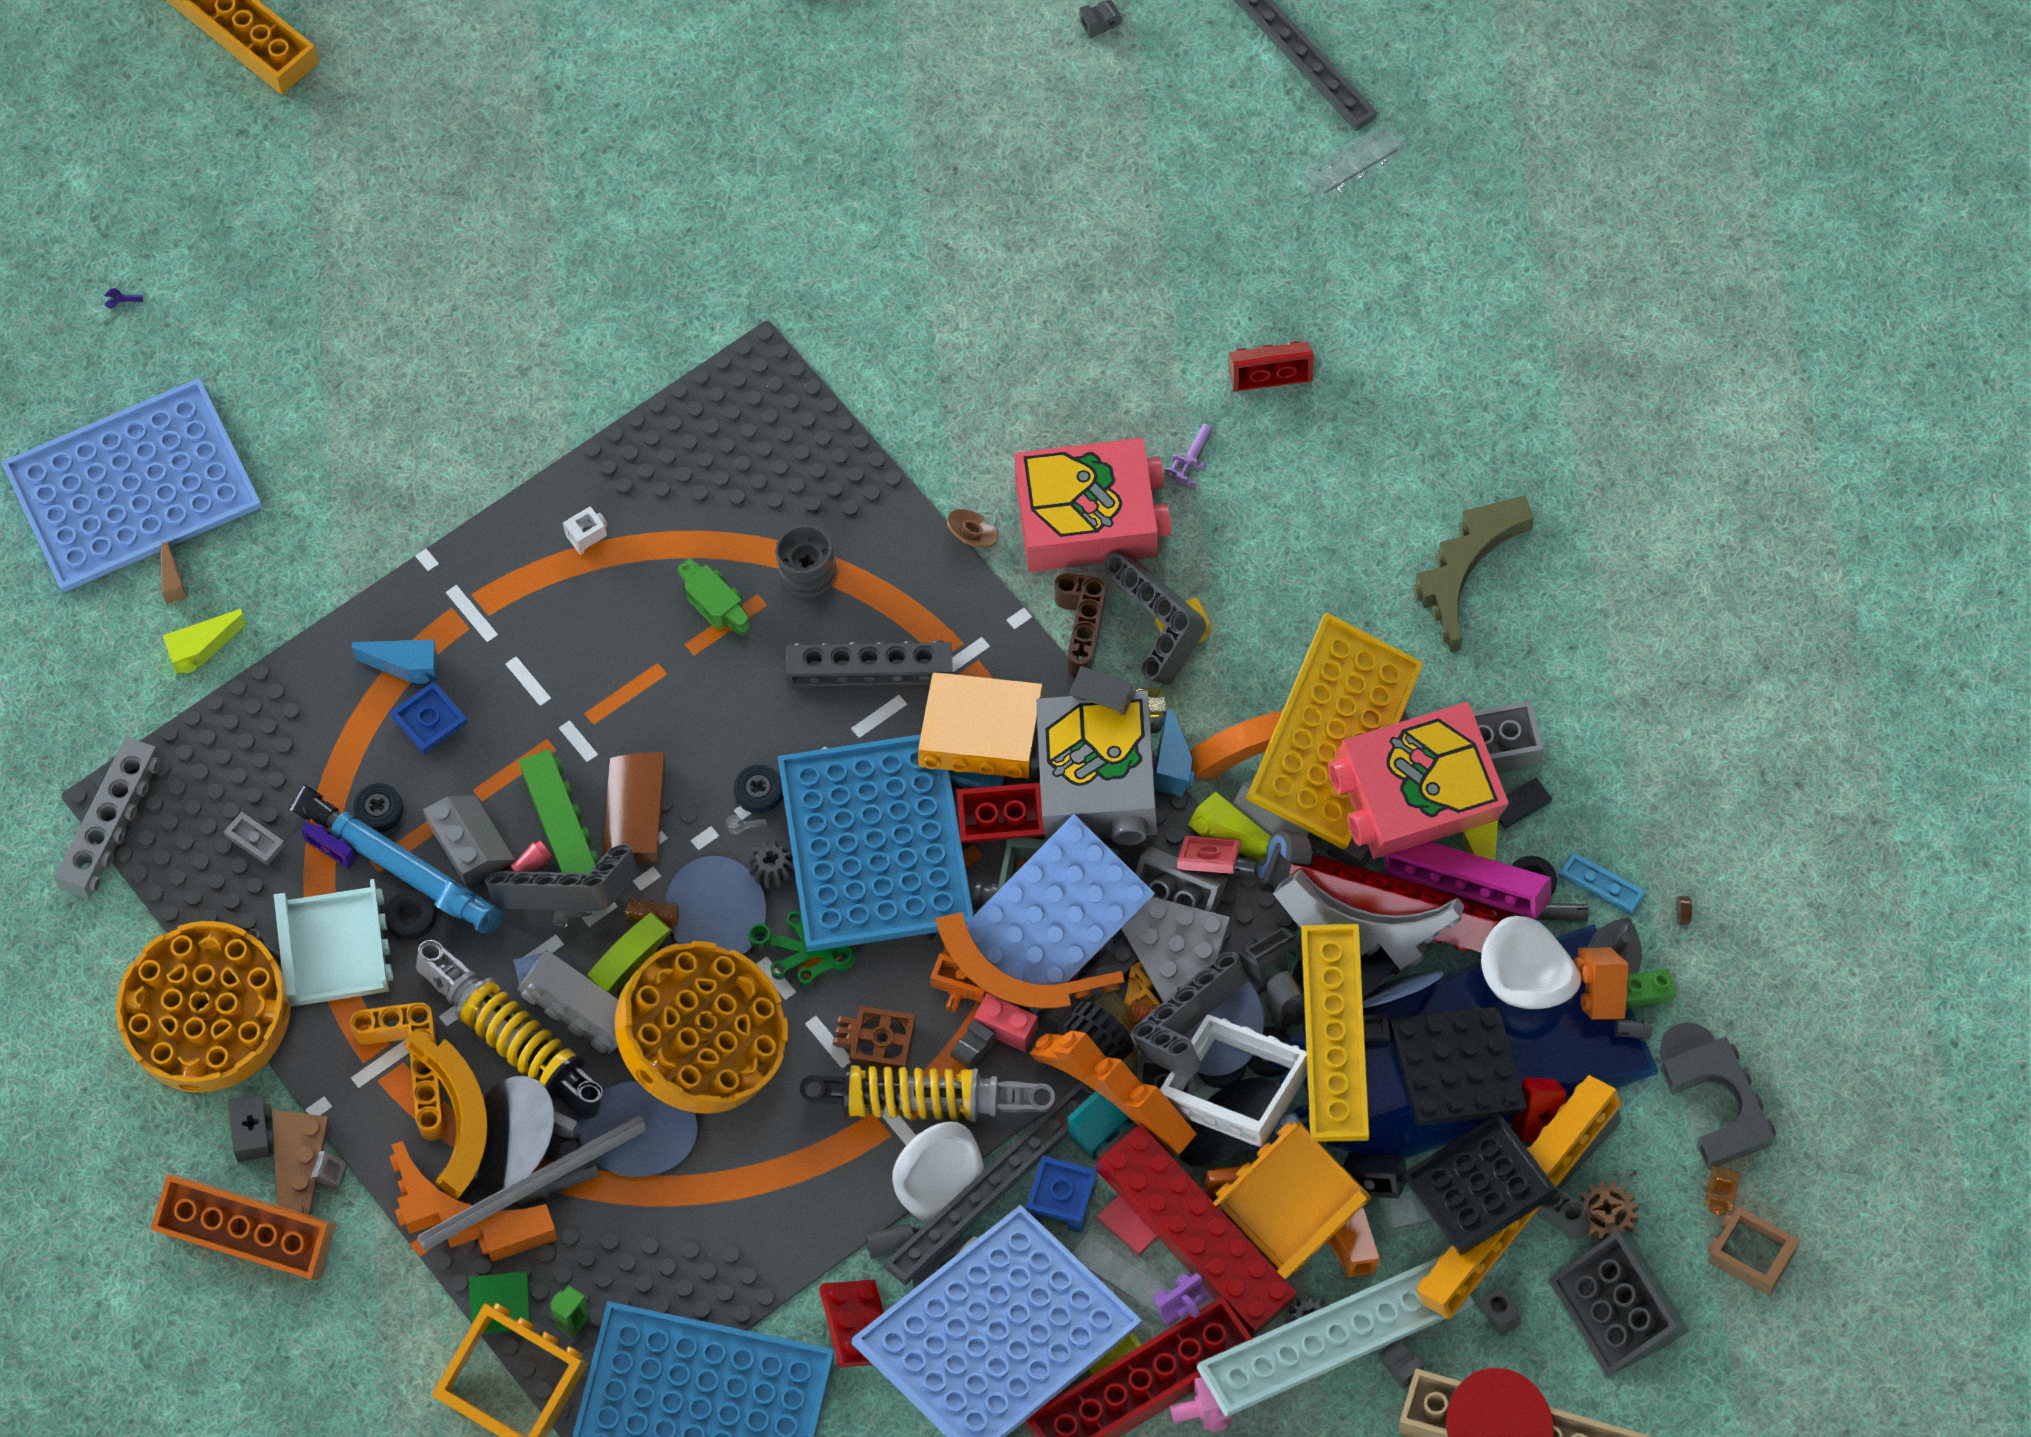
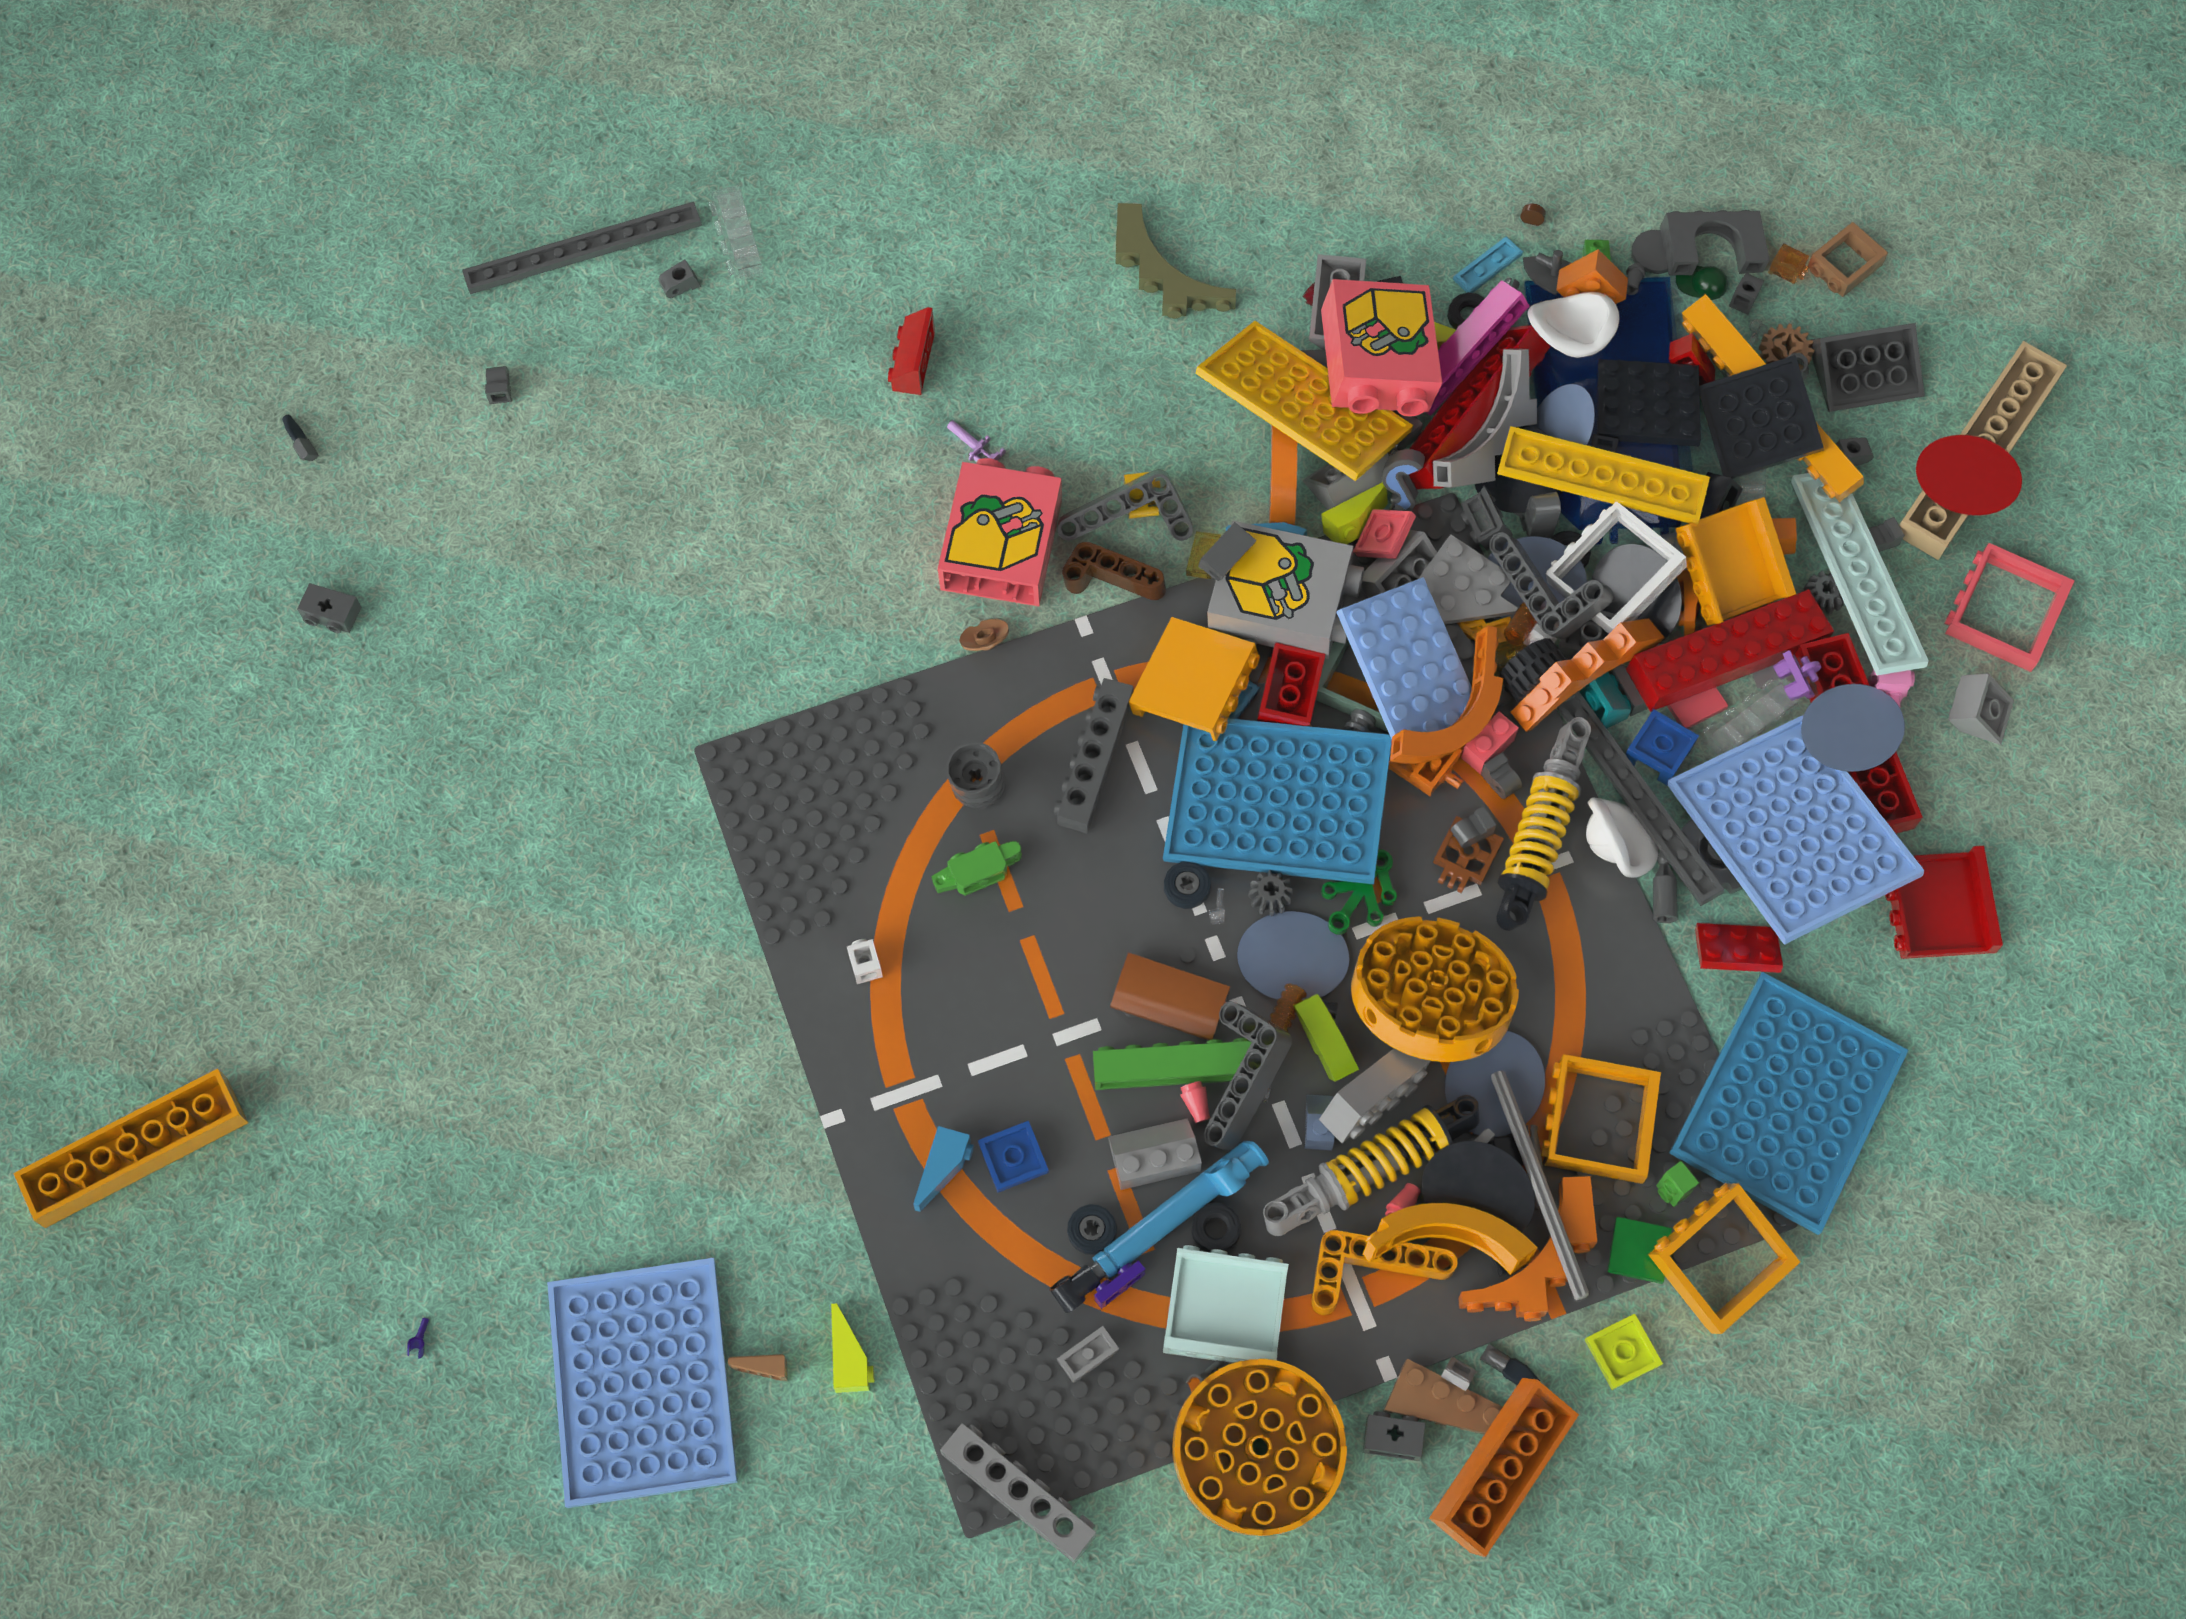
camera: 75 degrees left, 5 degrees up
(350, 1220) = (1510, 1367): none -> piece
(393, 1315) = (1623, 1351): none -> neon yellow plate
(484, 1072) = (1405, 1198): none -> coral cone
(632, 1274) = (1647, 1078): none -> light orange window
(900, 1029) = (1474, 828): none -> dark grey leg
(1137, 1367) = (1852, 727): none -> sand blue sticker
(1281, 132) = (678, 279): none -> dark grey leg
(1668, 1113) = (1703, 281): none -> dark green cap
(1669, 1154) = (1746, 293): none -> dark grey leg

